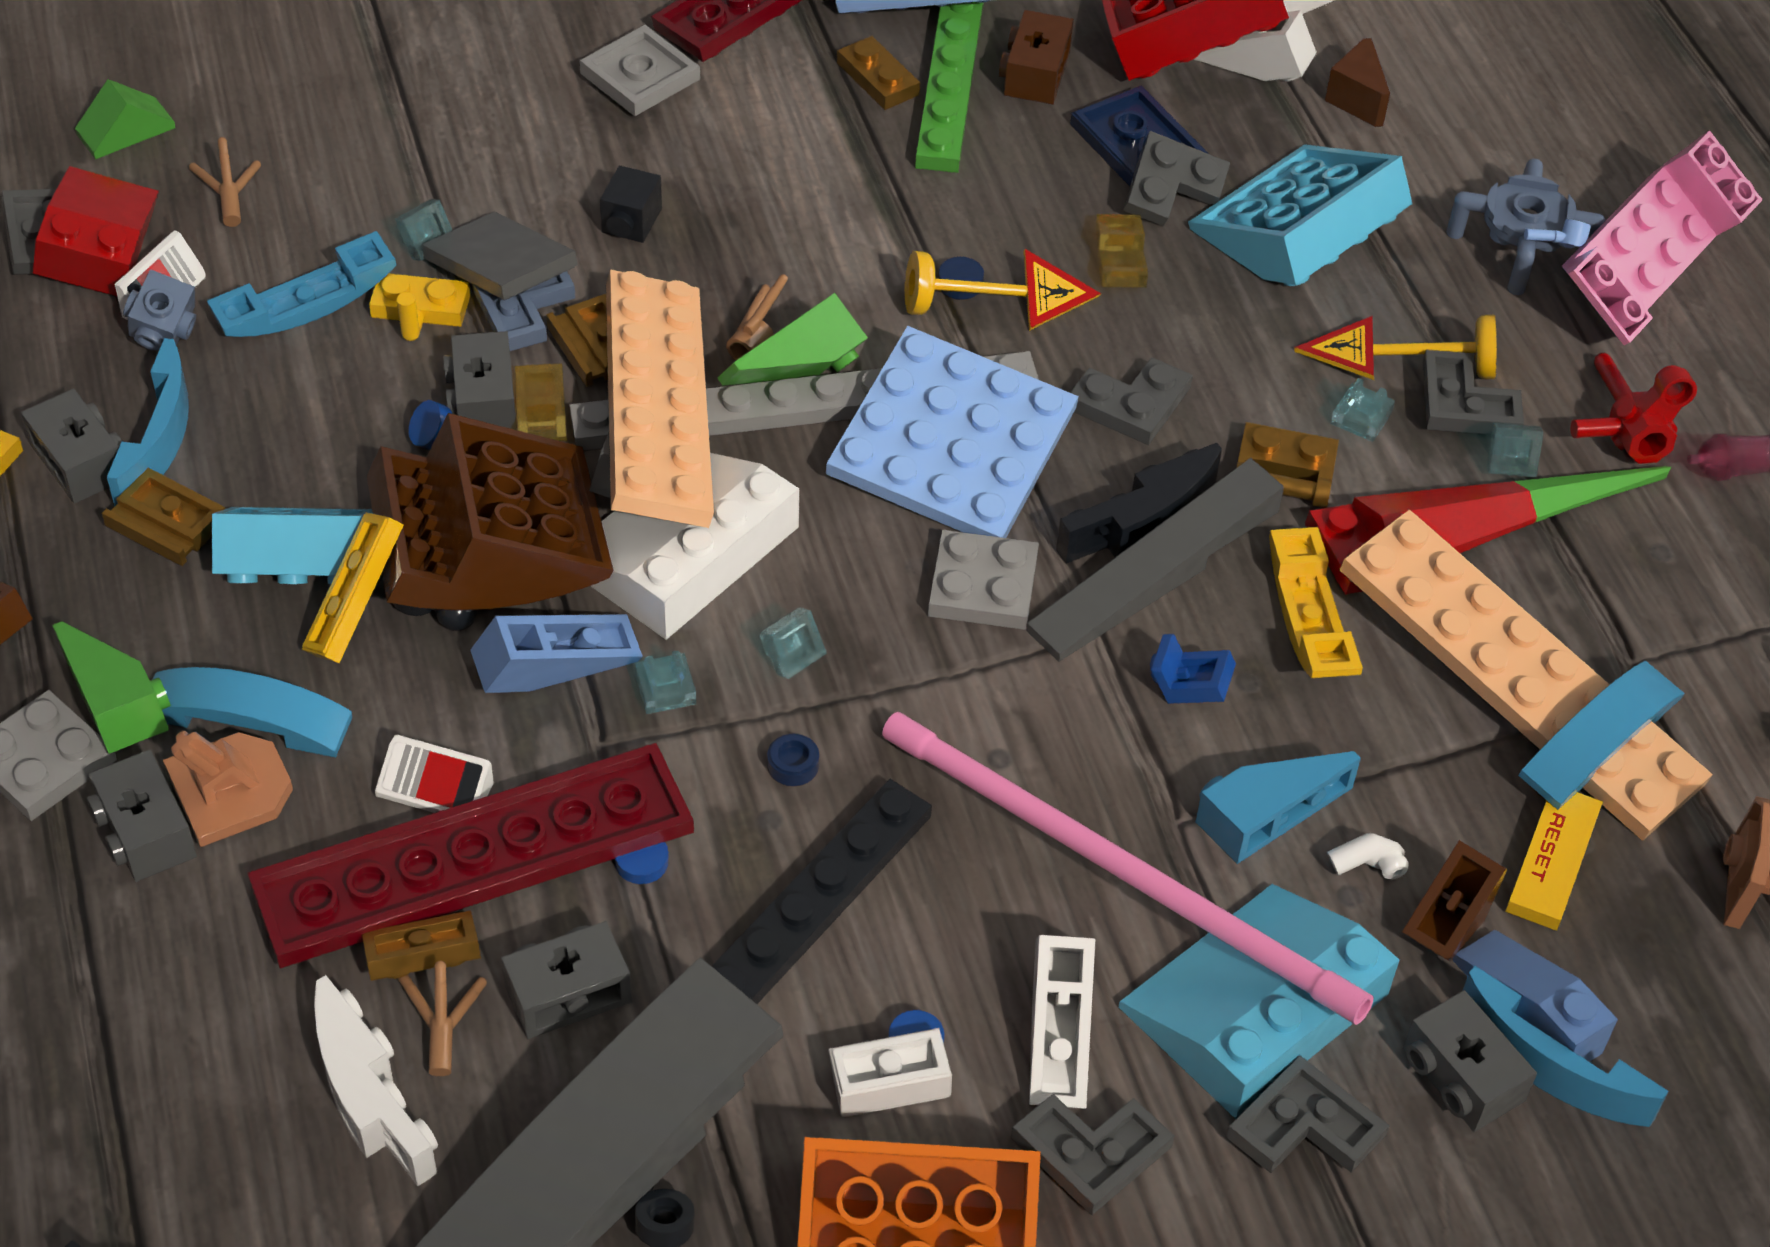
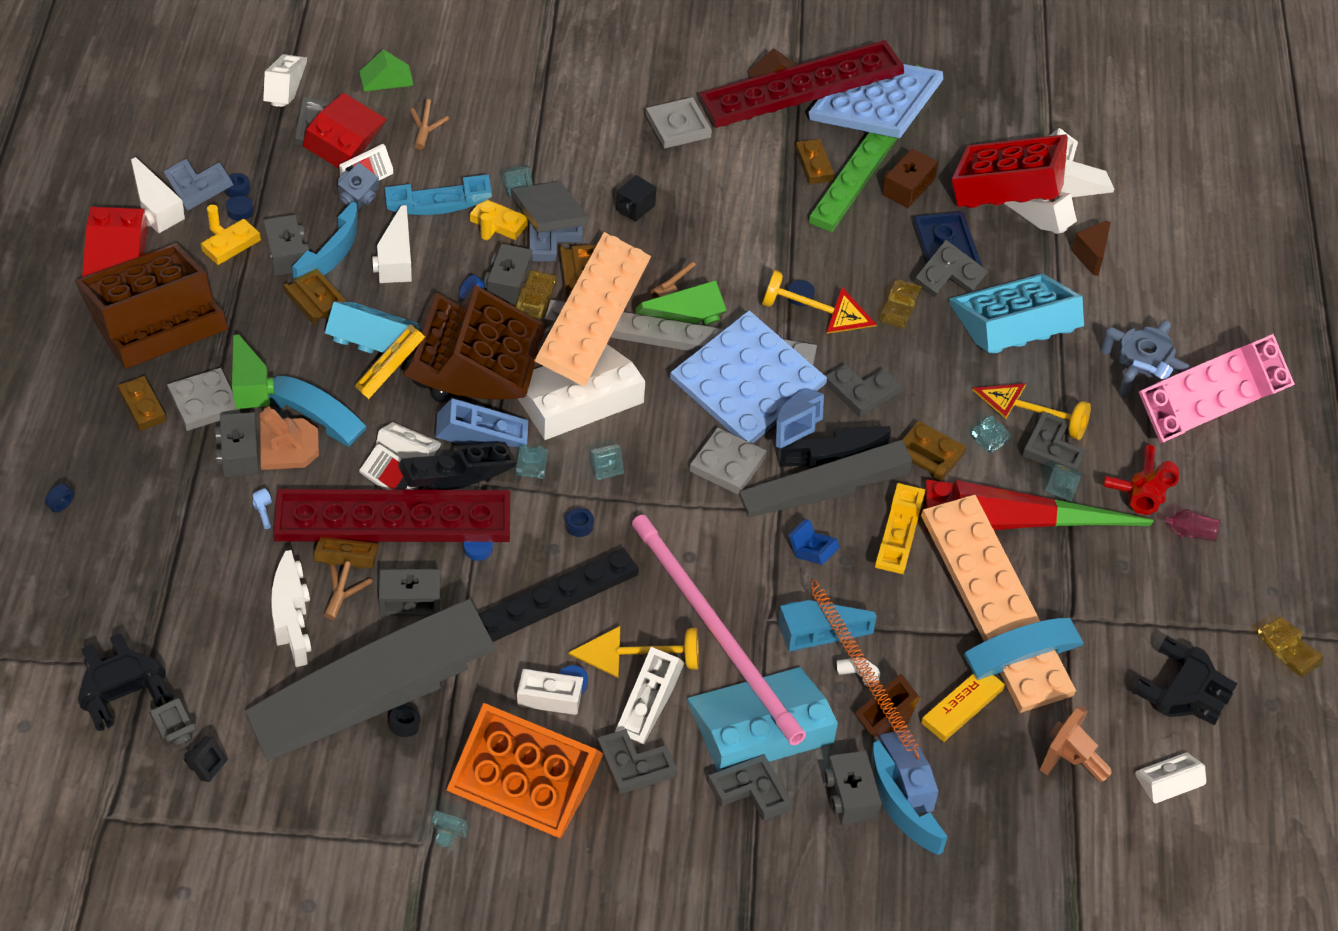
camera: 20 degrees right, 0 degrees up
(221, 906) = (260, 500): none -> light blue hand
(271, 401) = (394, 251): none -> white slope
(439, 719) = (406, 442): none -> white slope
(553, 733) = (461, 469): none -> black slope
(945, 970) = (606, 650): none -> yellow piece
(1071, 471) = (799, 416): none -> medium blue slope
(1503, 937) = (862, 673): none -> orange piece

